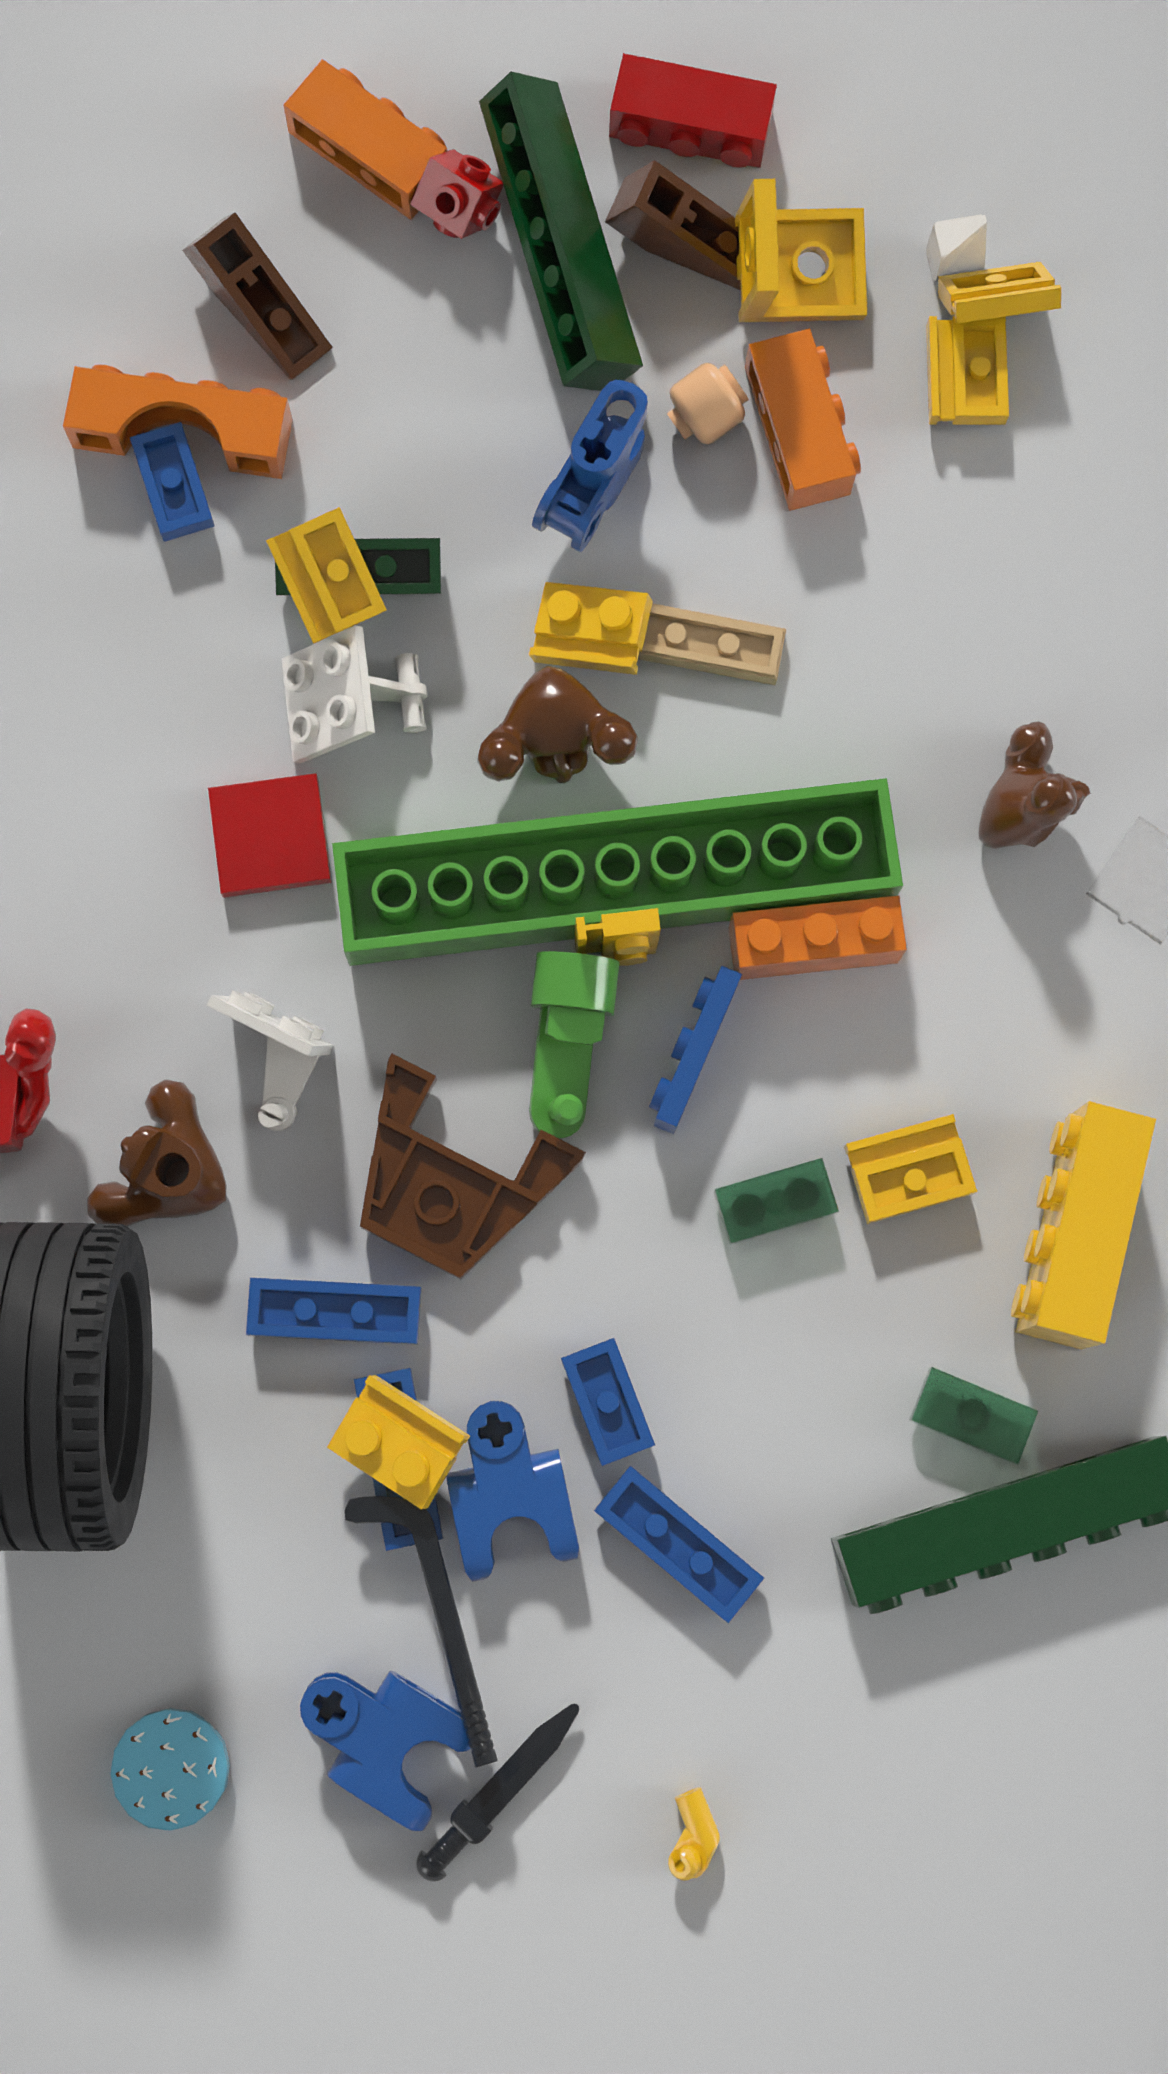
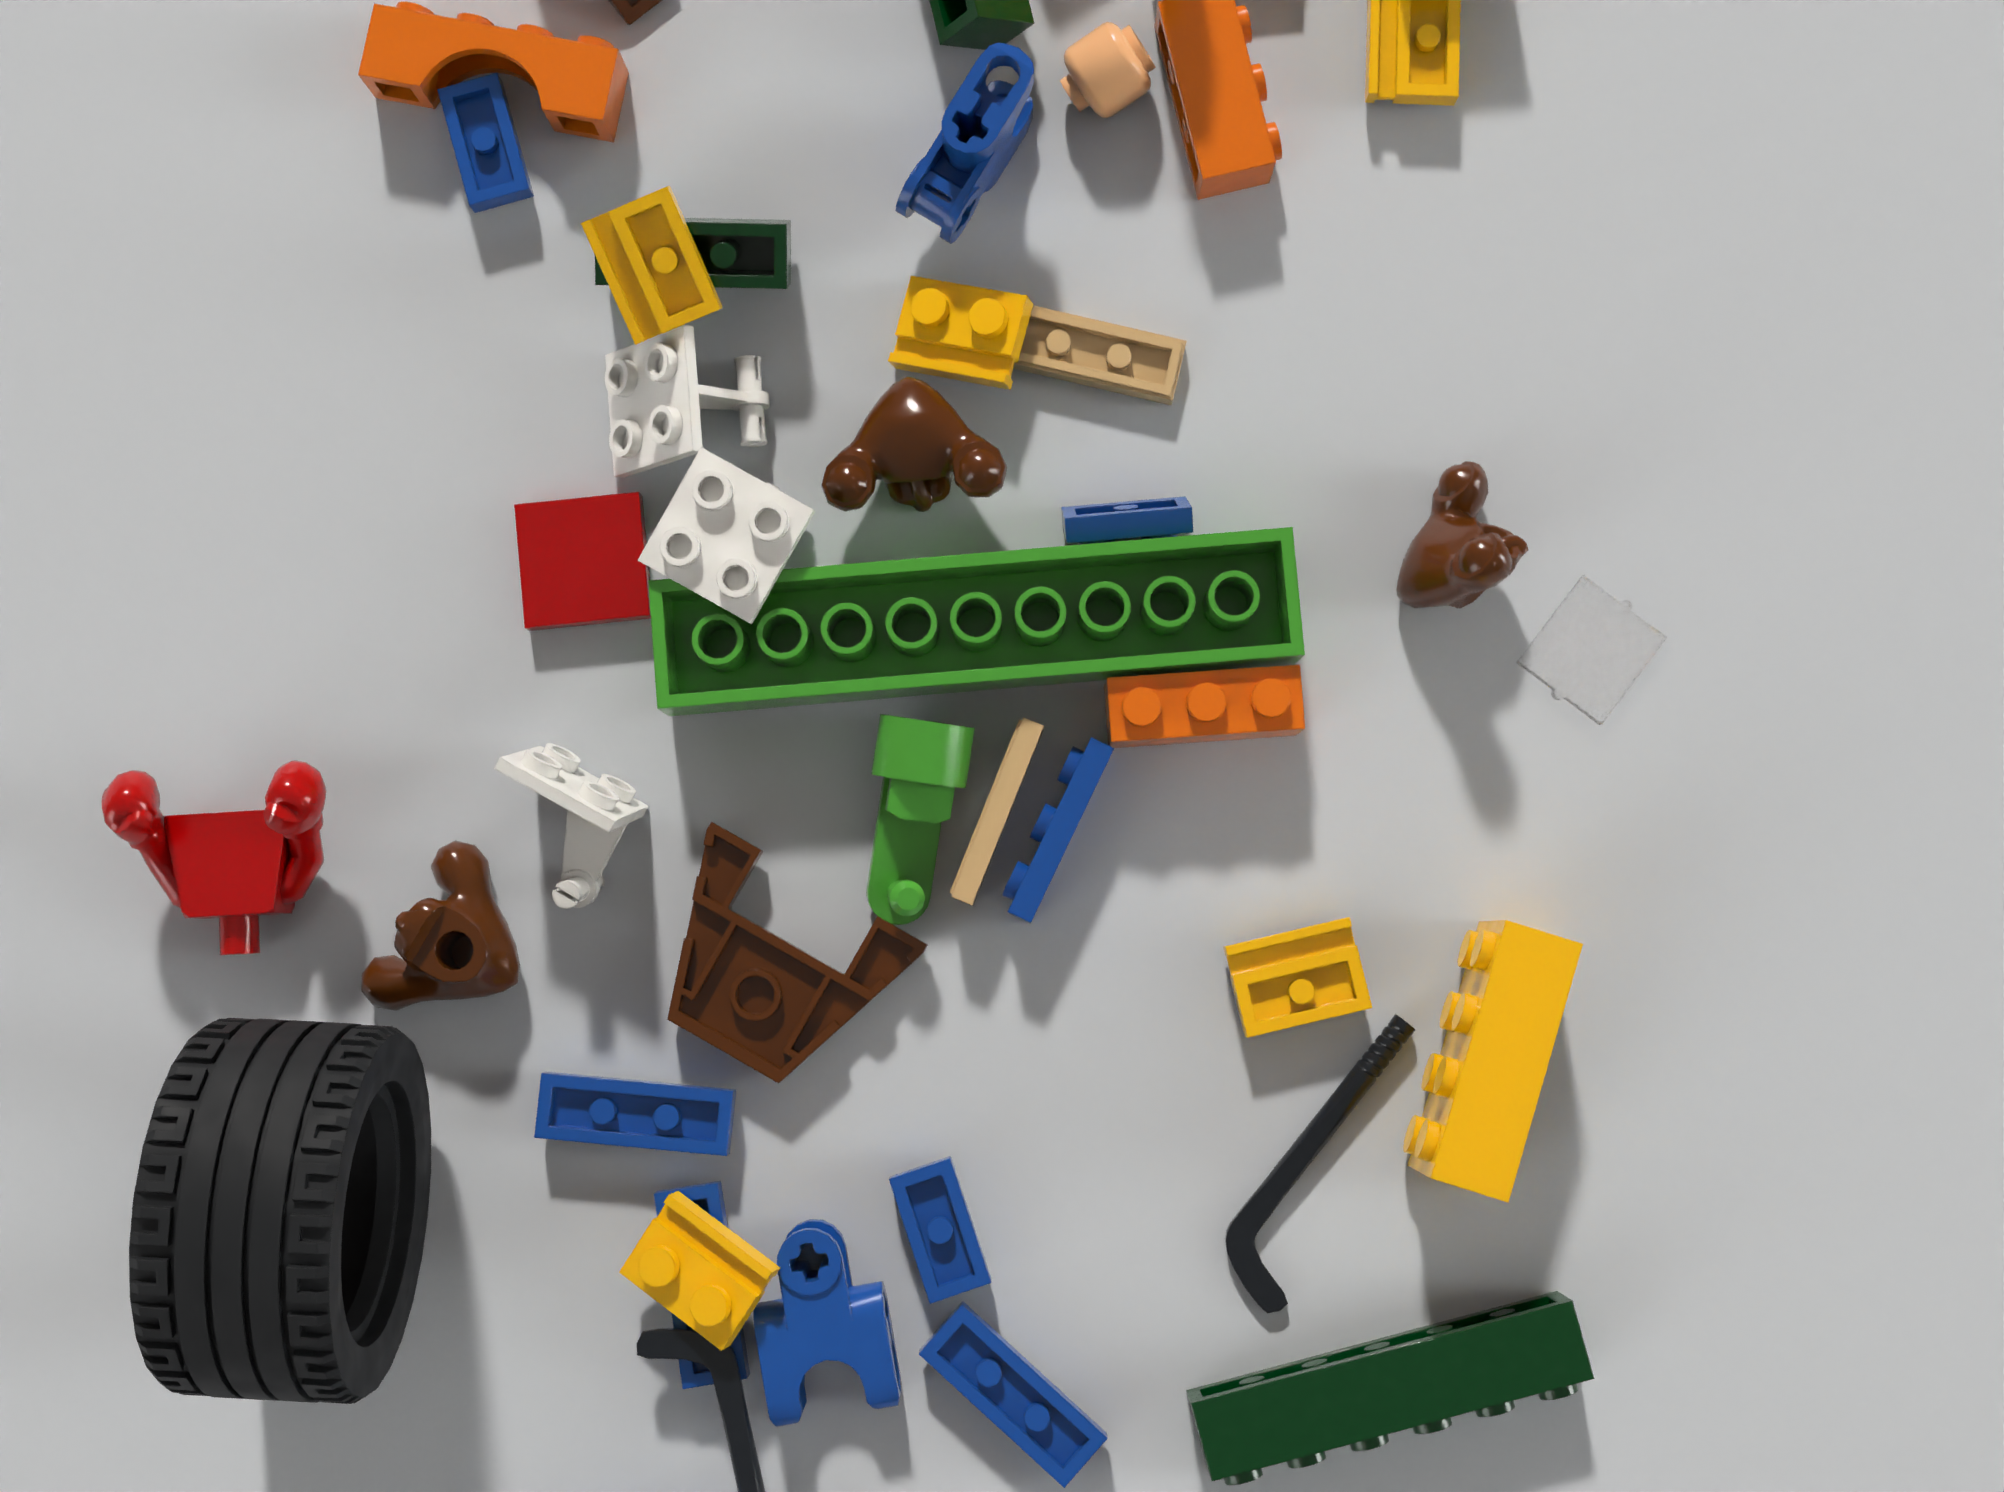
camera: 10 degrees right, 5 degrees up
(399, 801) = (726, 535): none -> white plate
(620, 936) = (982, 700): yellow plate -> none
(640, 1035) = (996, 811): none -> tan tile
(742, 781) = (1127, 520): none -> blue plate
(776, 1201) = (1142, 1008): clear green plate -> none
(875, 1390) = (1255, 1212): none -> black piece
(973, 1415) = (1354, 1262): clear green plate -> none

